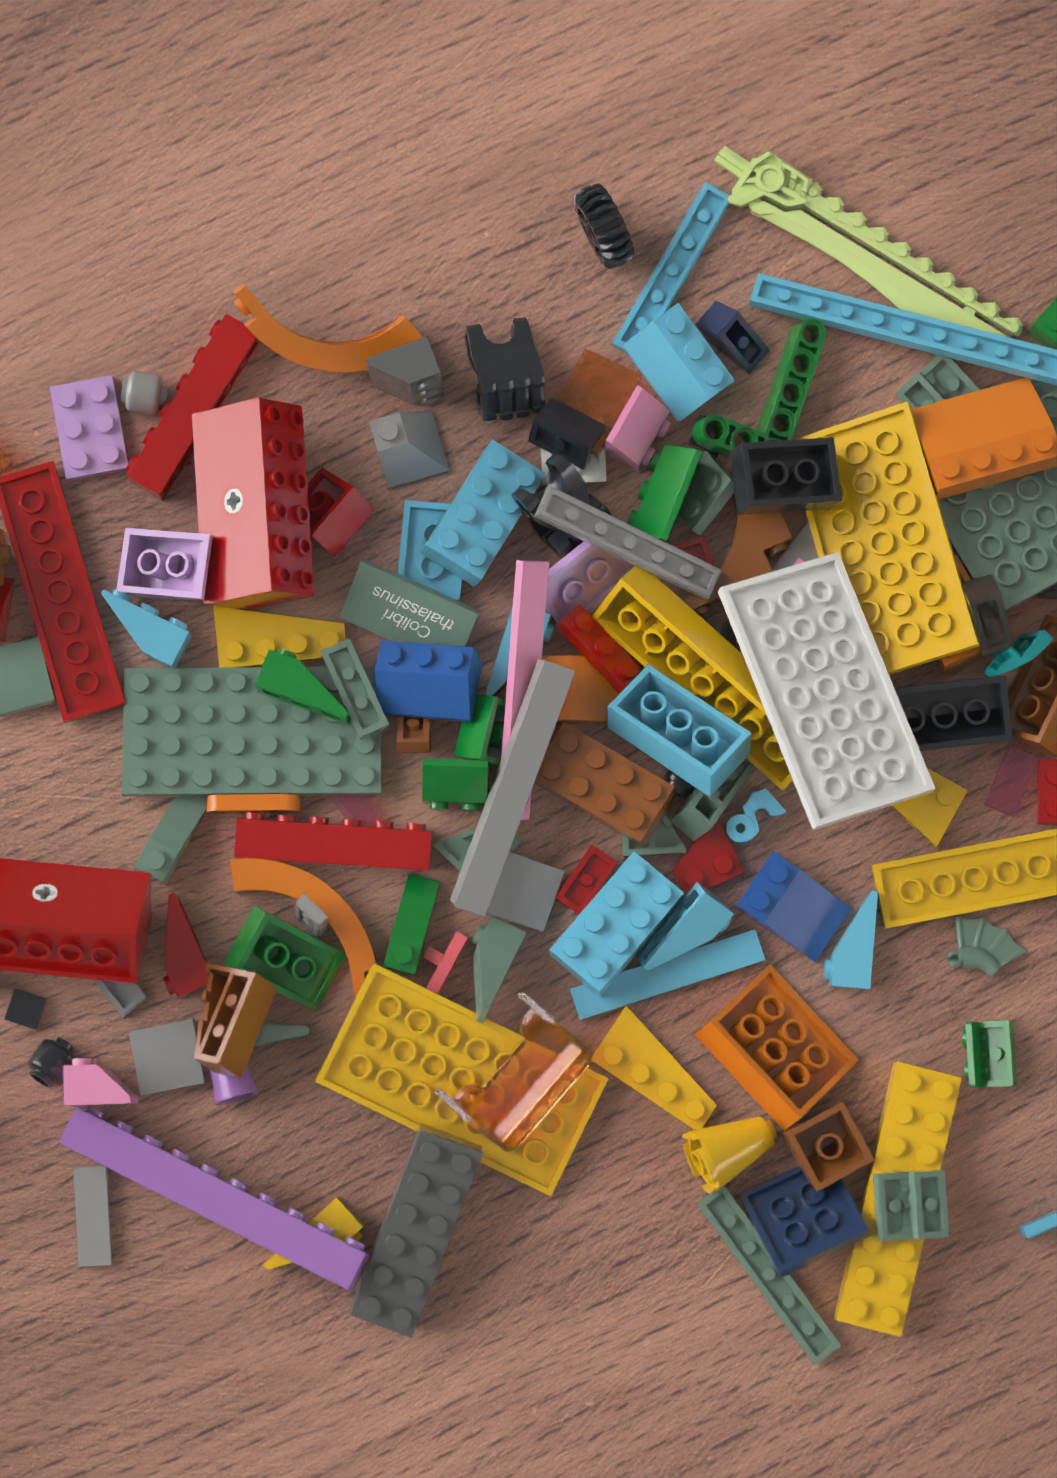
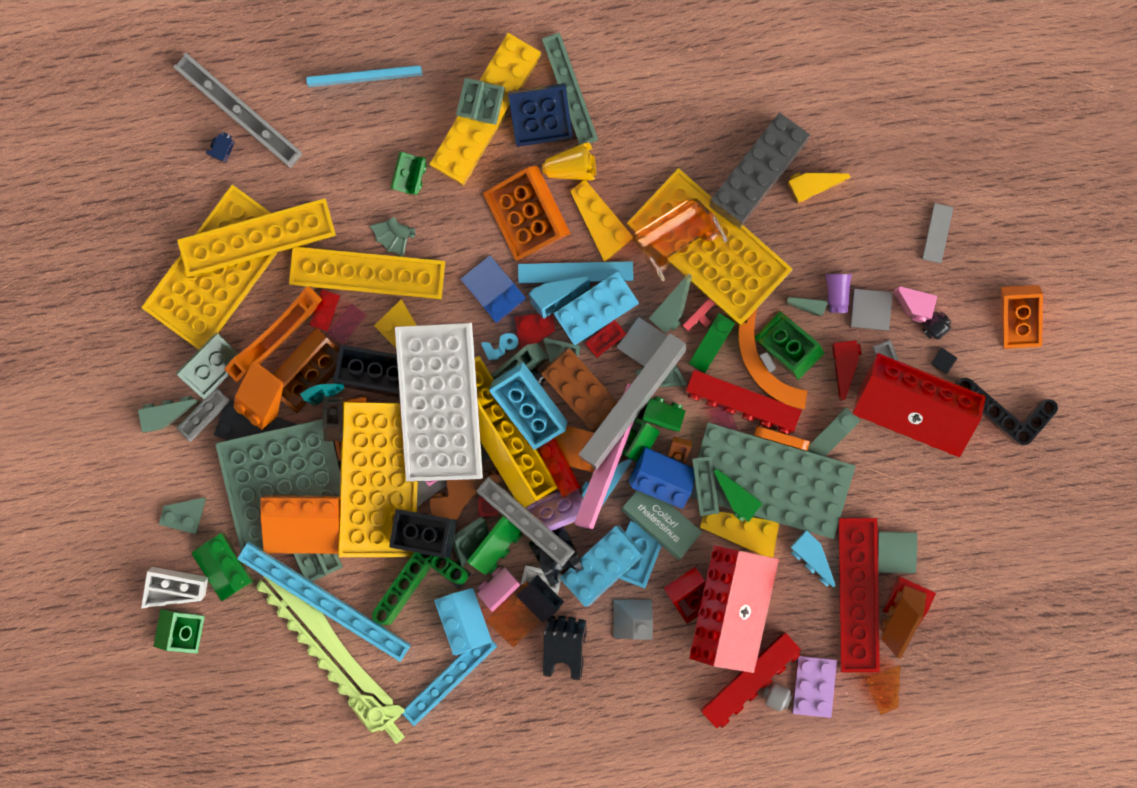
camera: 165 degrees left, 5 degrees up
(164, 564) = (794, 589): lavender slope -> none
(214, 1198) = (866, 220): medium lavender brick -> none
(232, 1018) = (829, 317): dark orange wedge -> none
(320, 354) = (660, 684): orange arch -> none
(408, 373) = (621, 660): dark grey slope -> none
(603, 226) = (482, 715): black gear -> none
(732, 336) = (426, 628): dark blue slope -> none
(828, 1146) = (515, 149): dark orange slope -> none
(853, 955) = (467, 253): medium azure slope -> none

